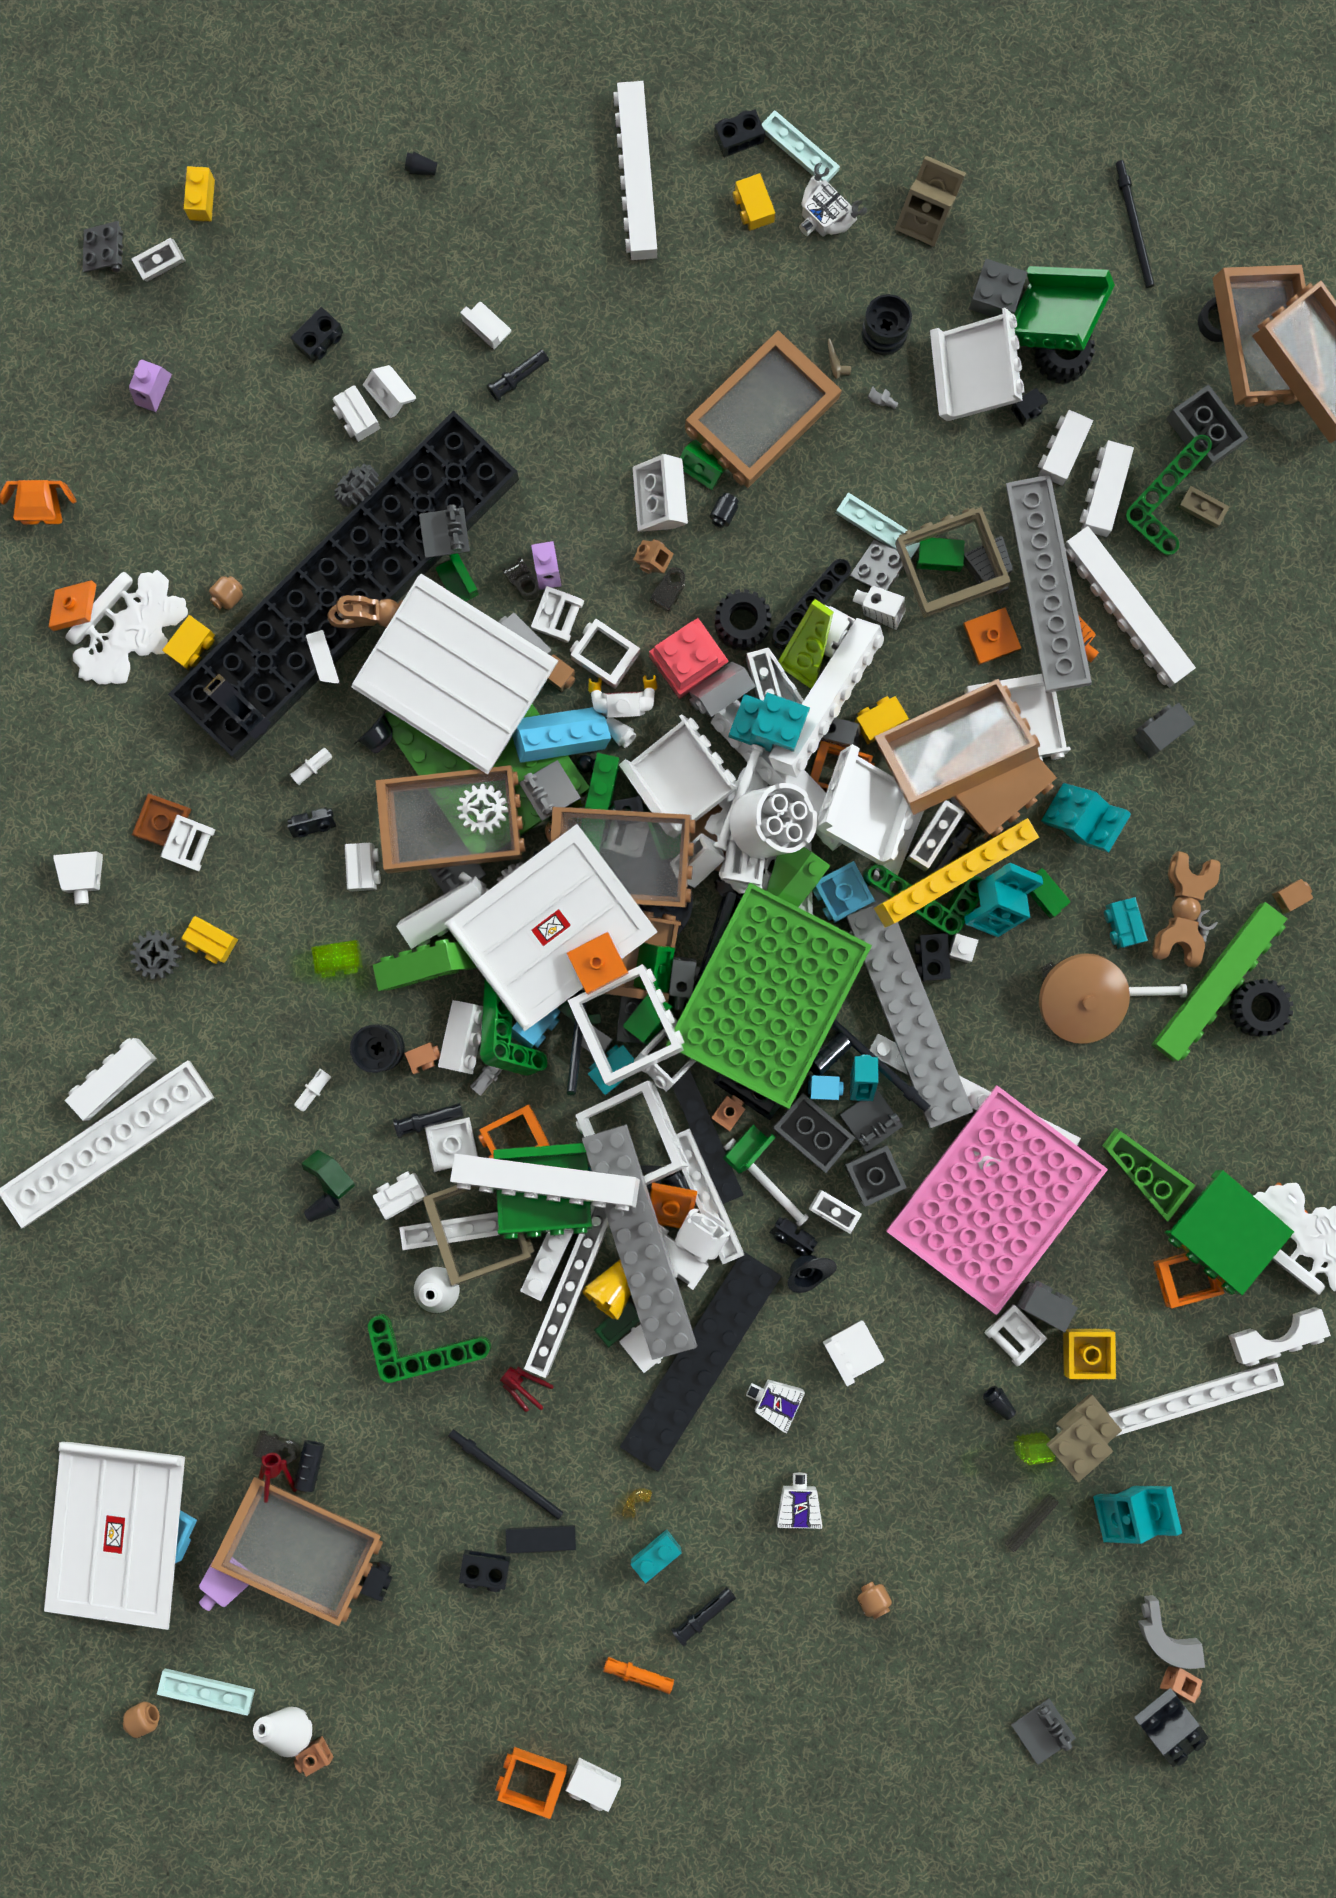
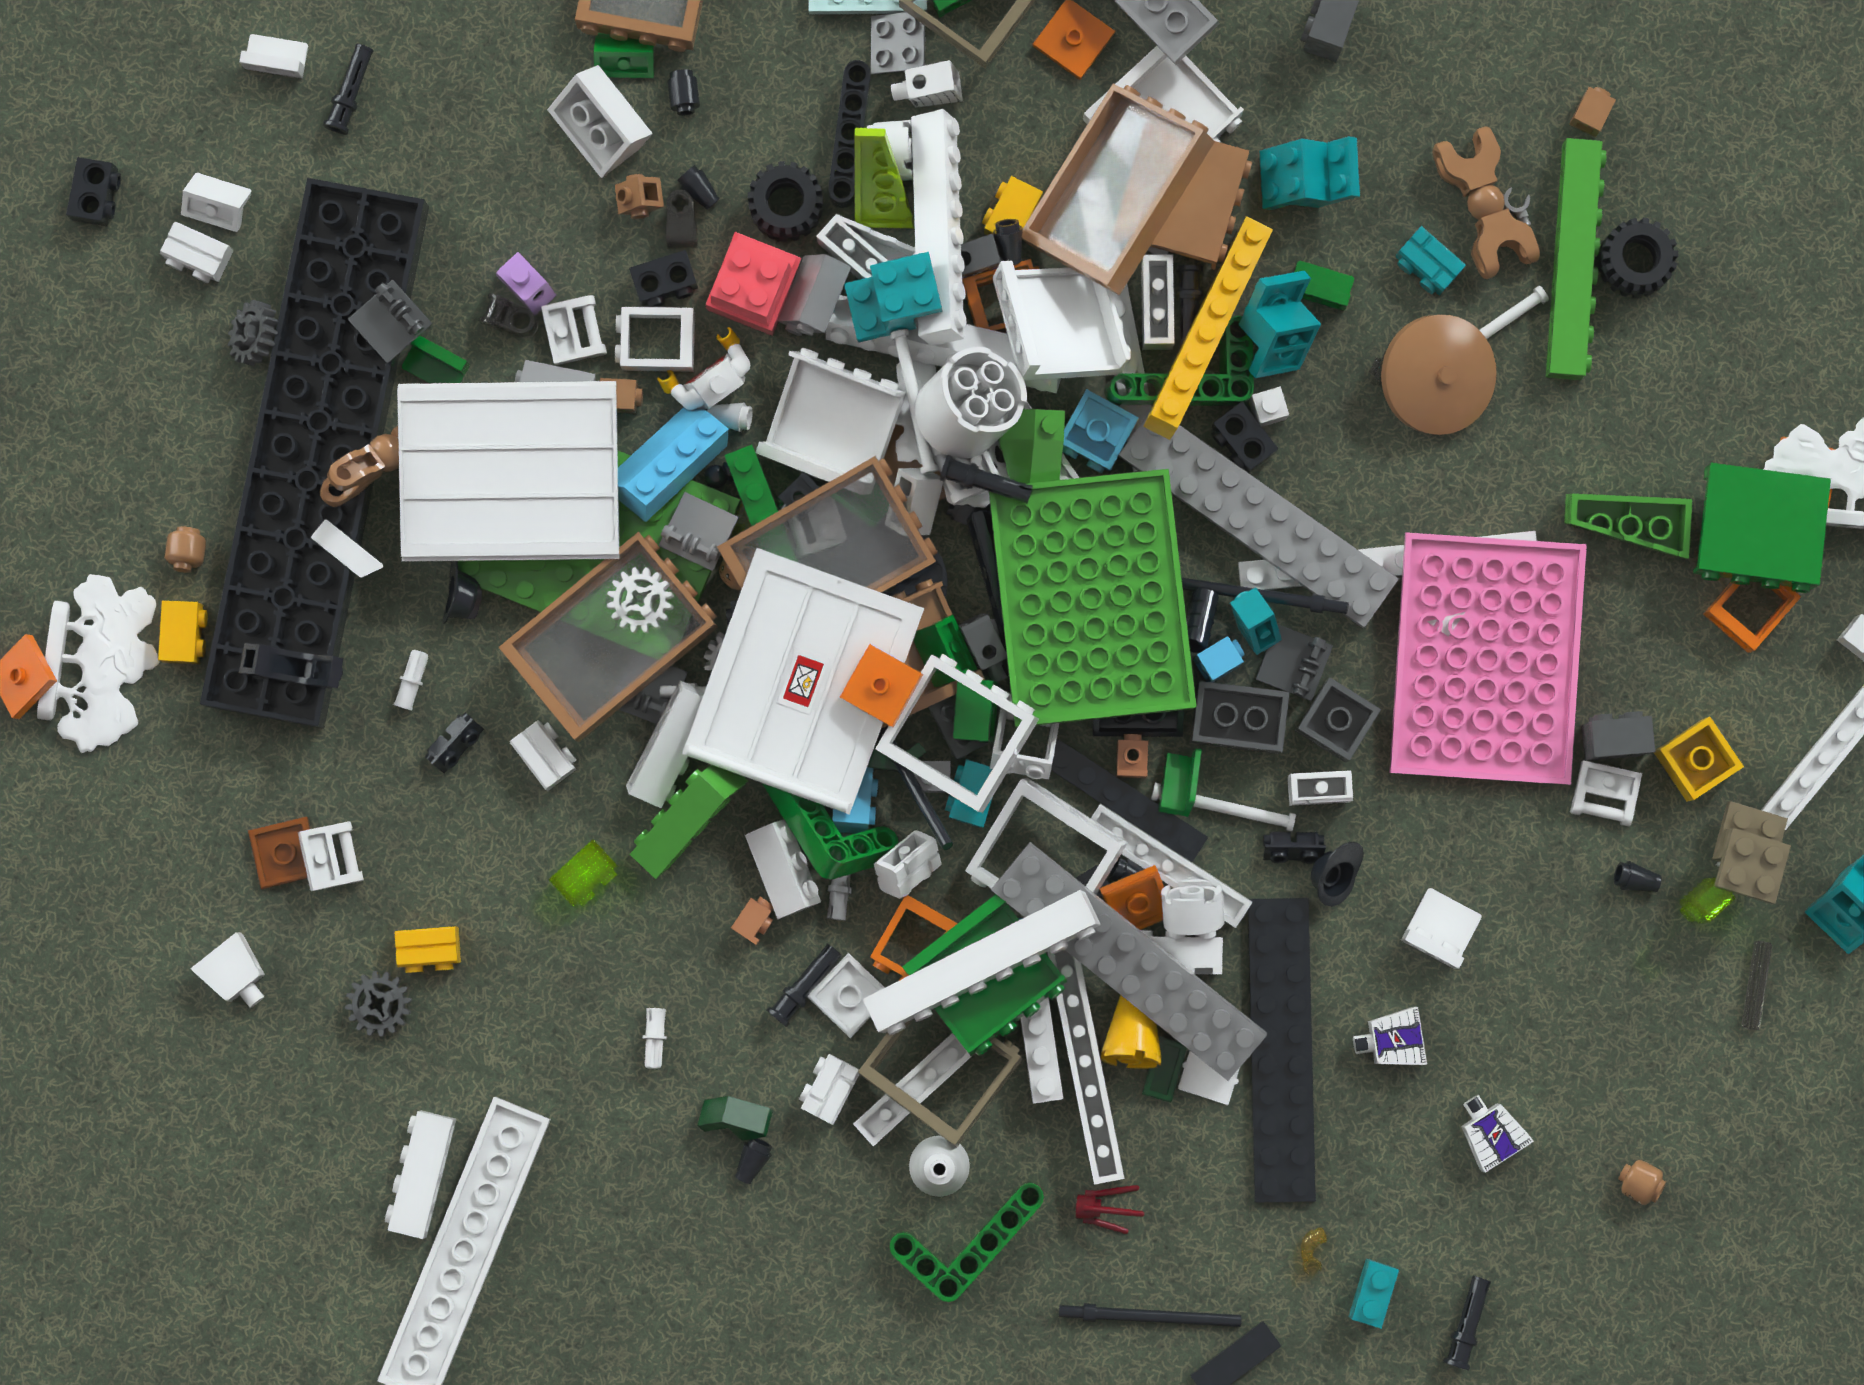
camera: 30 degrees left, 0 degrees up
(367, 1056) = (690, 958): black wheel -> none
(541, 1086) = (907, 864): none -> white brick
(636, 613) = (661, 271): none -> black brick
(694, 575) = (698, 186): none -> black cone
(743, 868) = (972, 477): none -> black pin
(867, 734) = (1009, 239): none -> black cone

